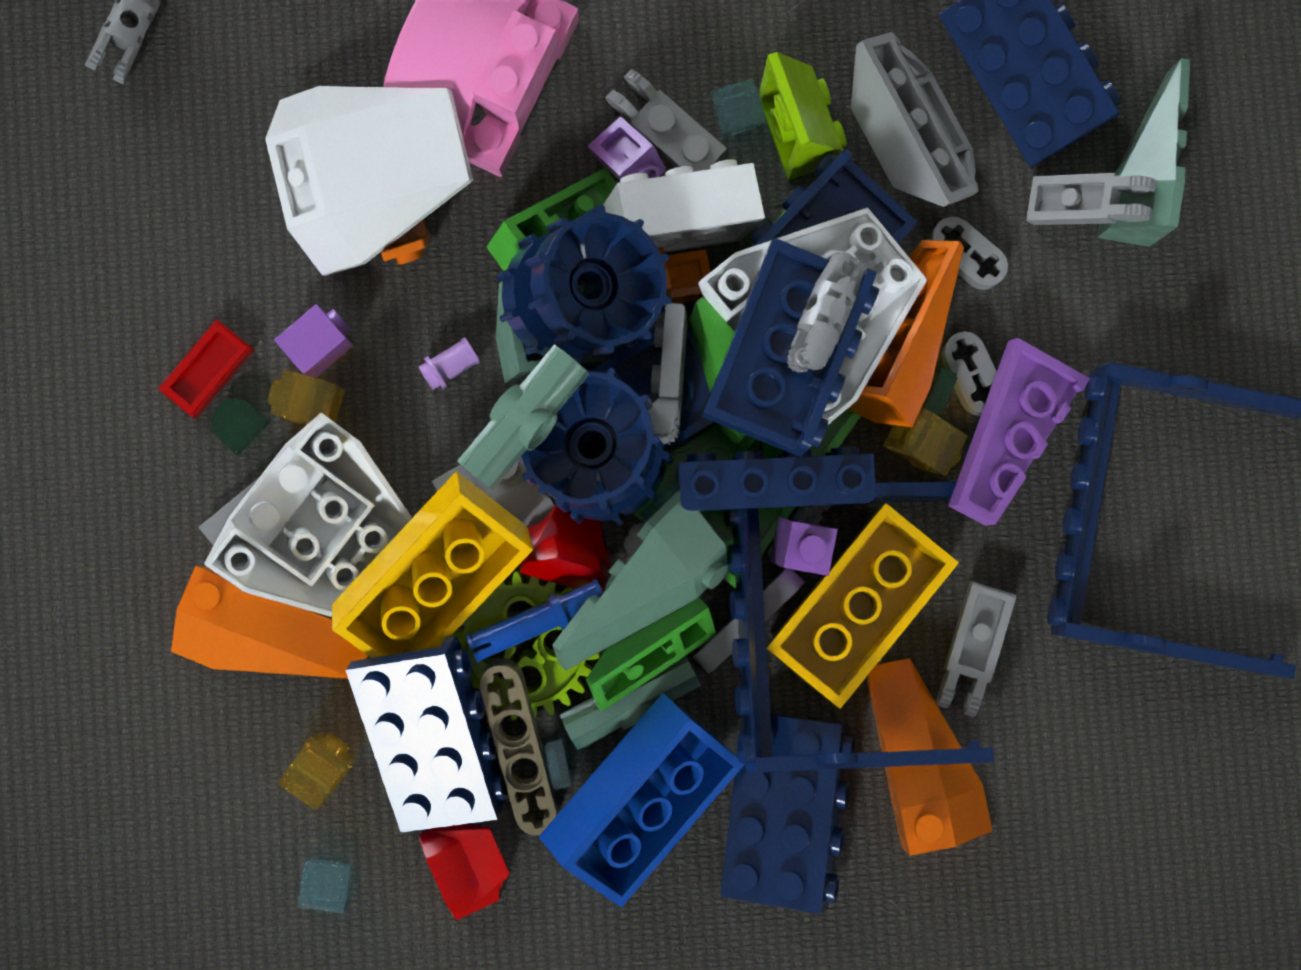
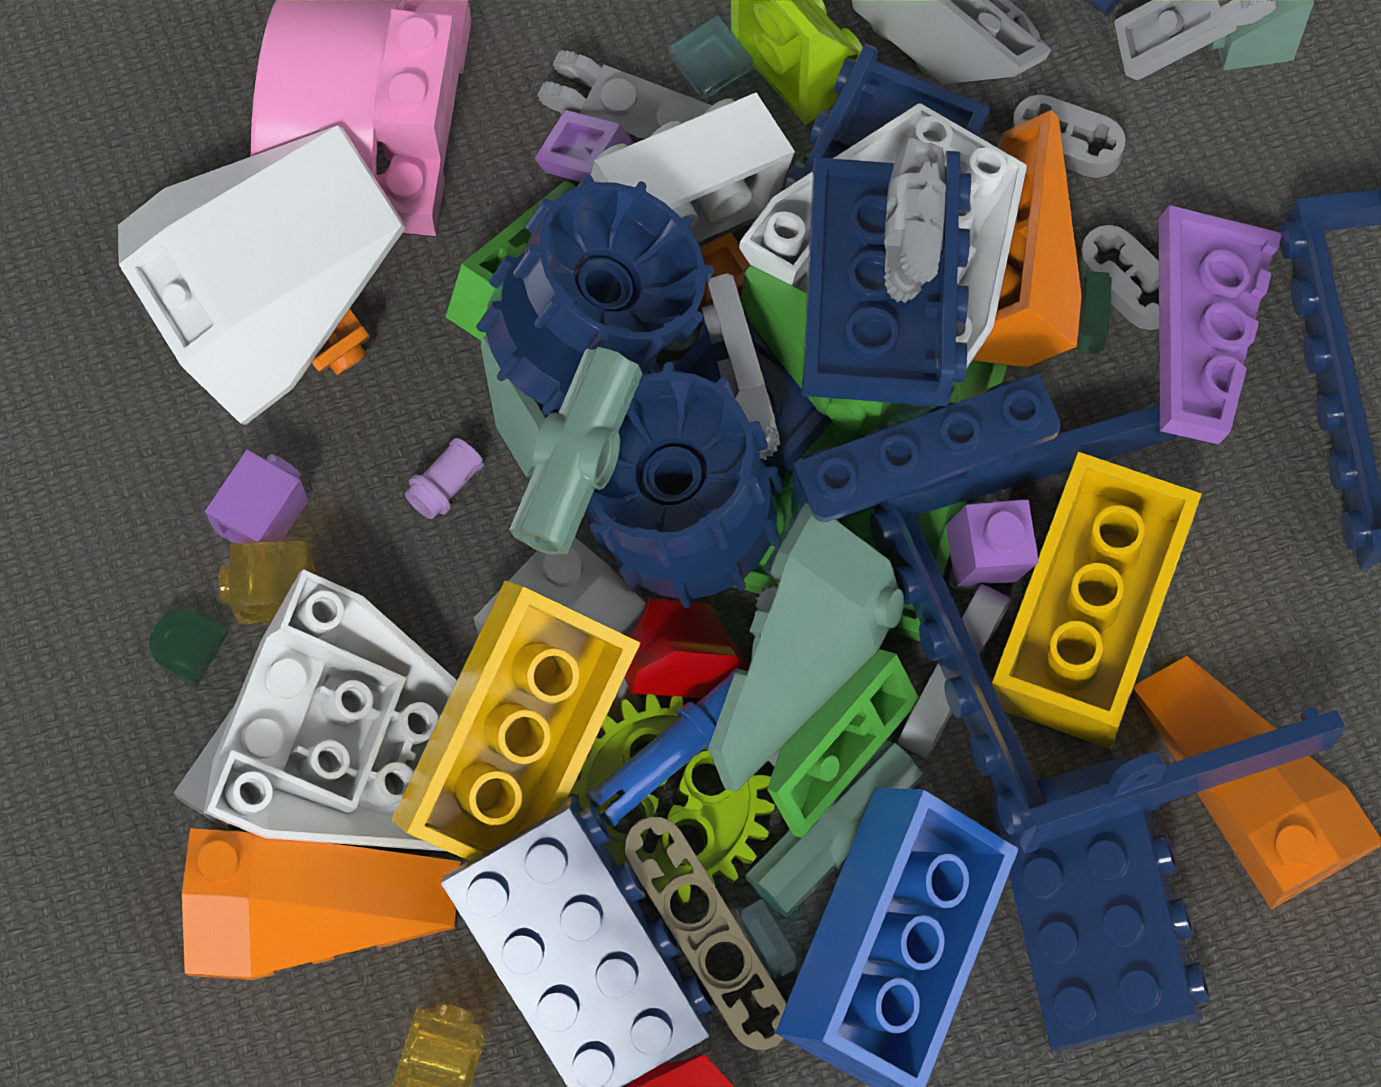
camera: 10 degrees left, 15 degrees down
(206, 369) = (121, 590): red tile -> none
(929, 444) = (1103, 373): clear yellow brick -> none
(976, 644) = (1266, 606): light grey hinge -> none

